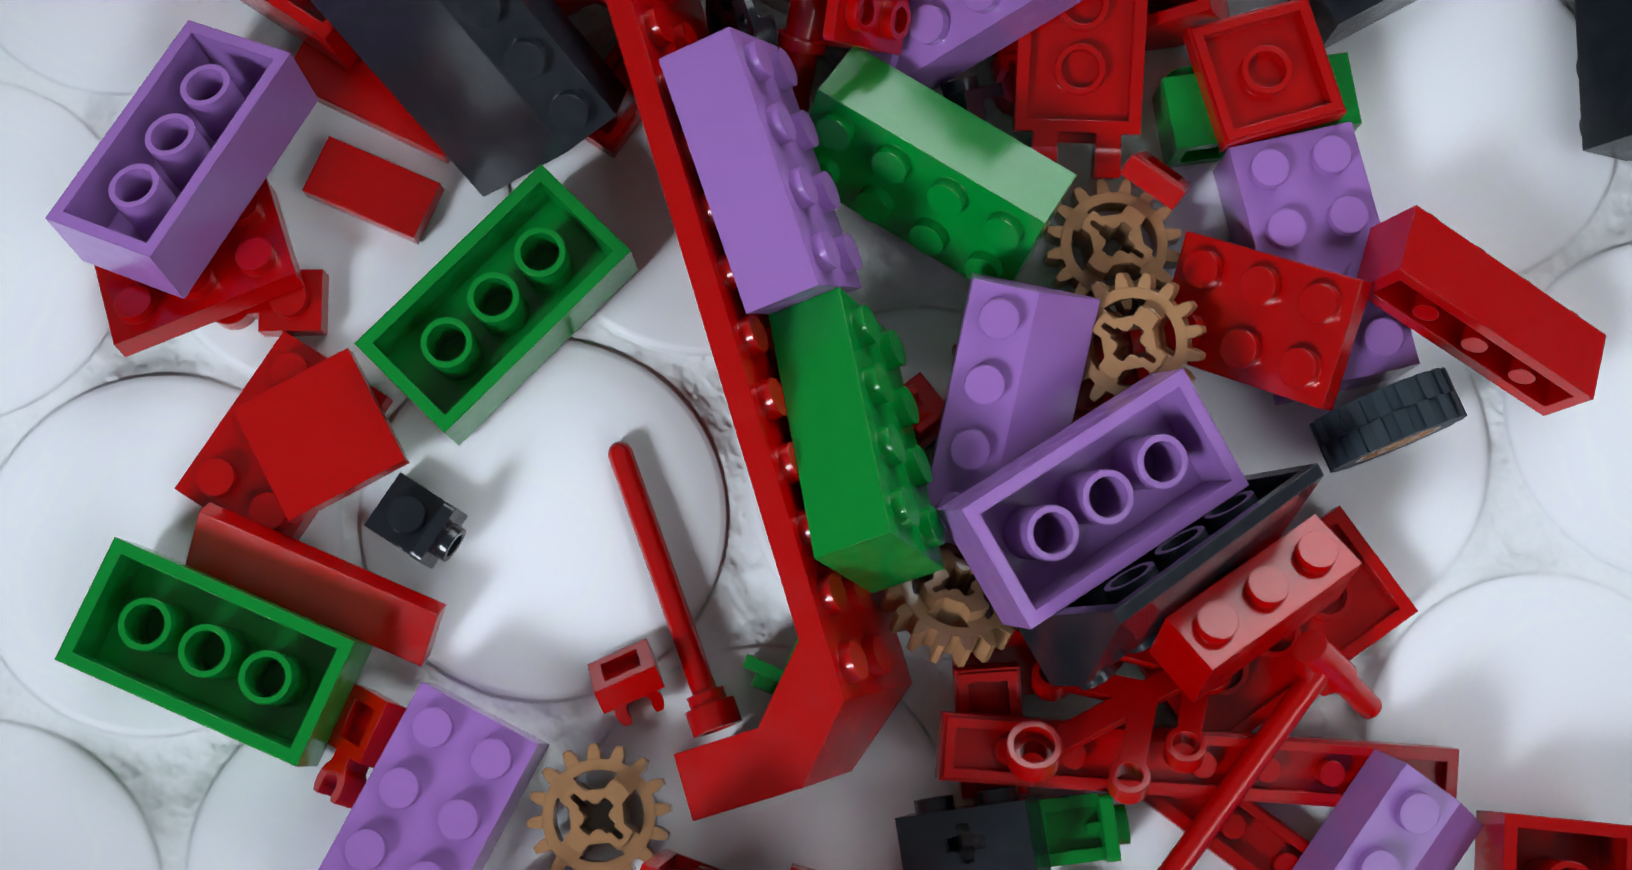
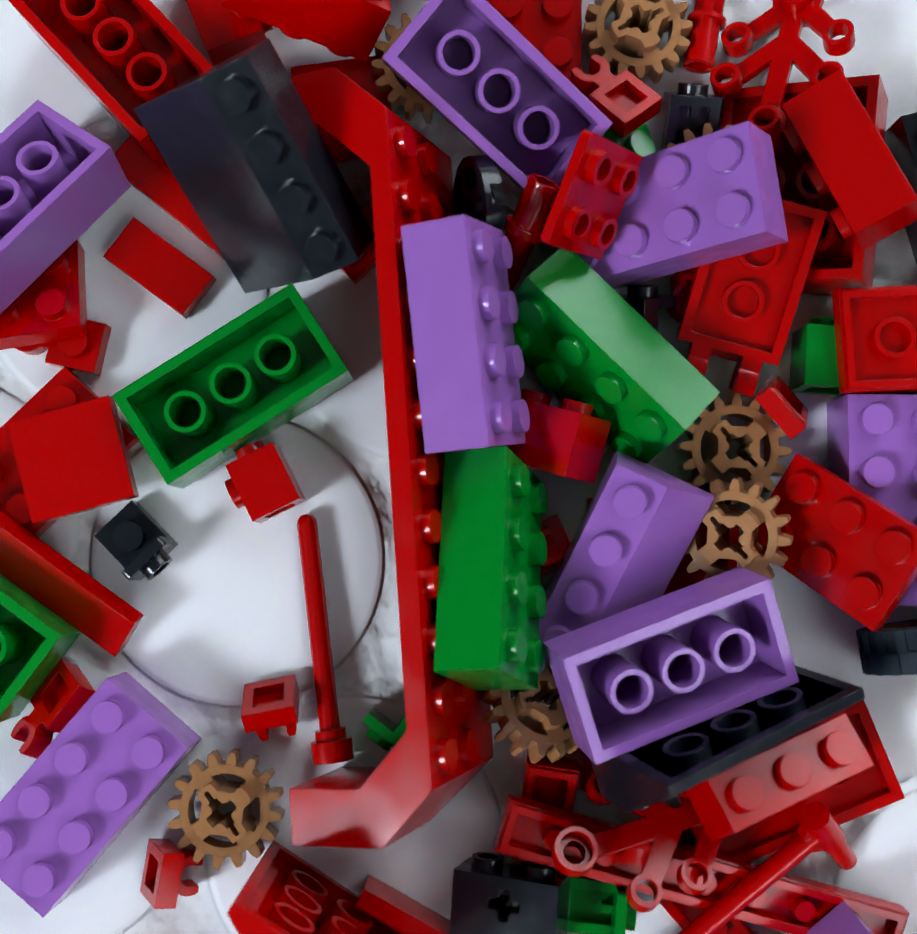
camera: 10 degrees right, 5 degrees up
(556, 412) = (262, 481): none -> red brick
(906, 272) = (562, 438): none -> red brick

